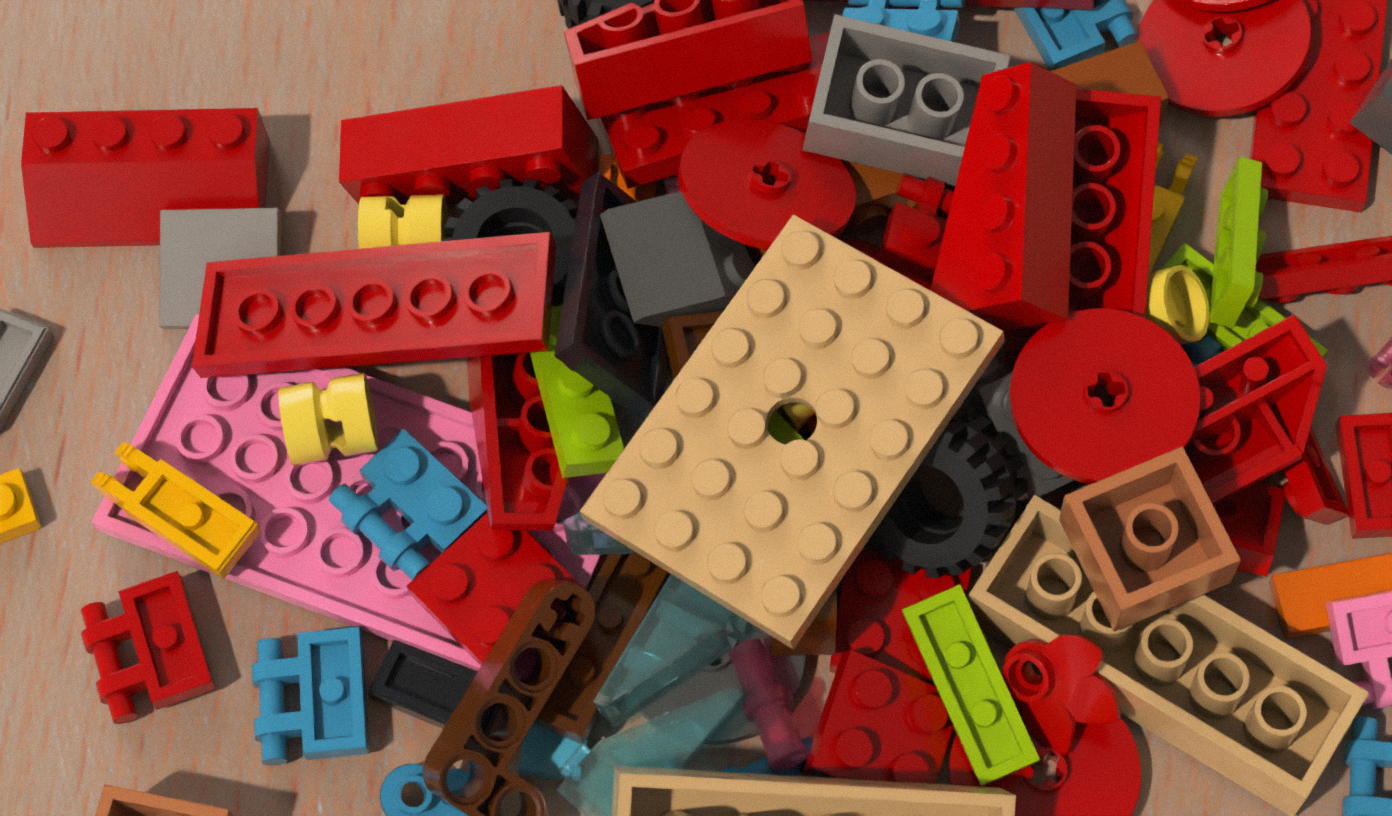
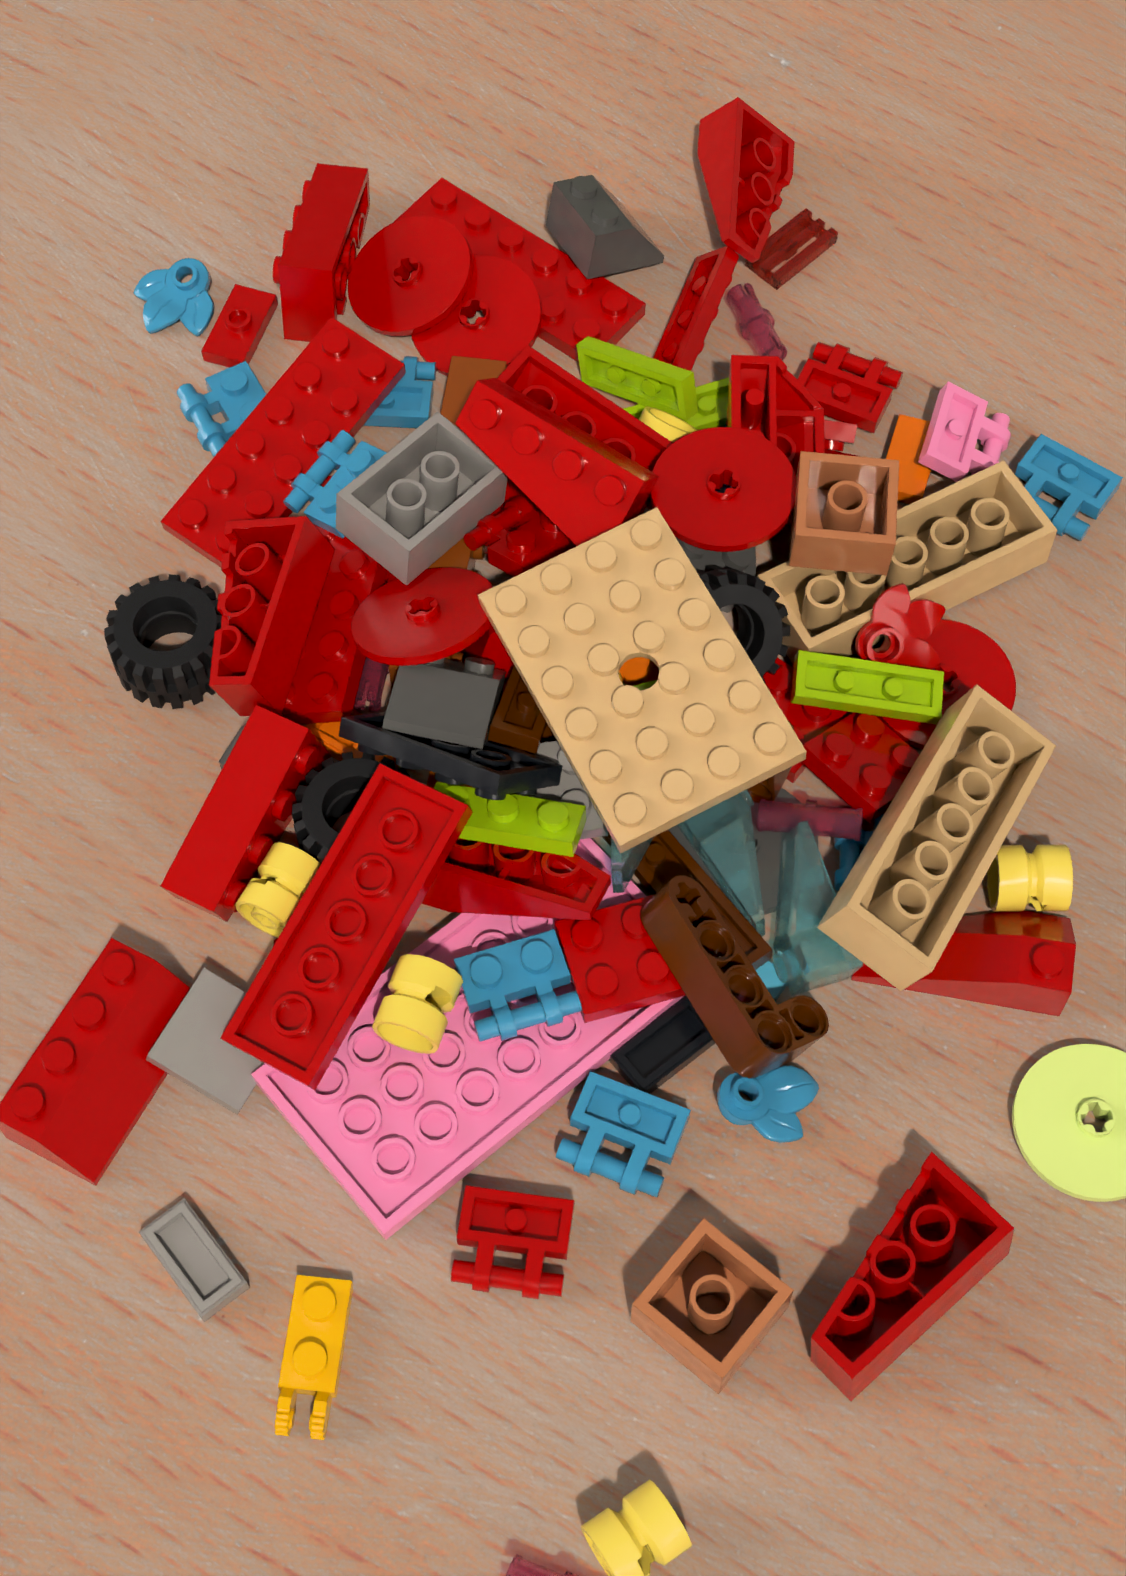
camera: 65 degrees left, 5 degrees down
(181, 511) = (420, 1155): yellow hinge -> none

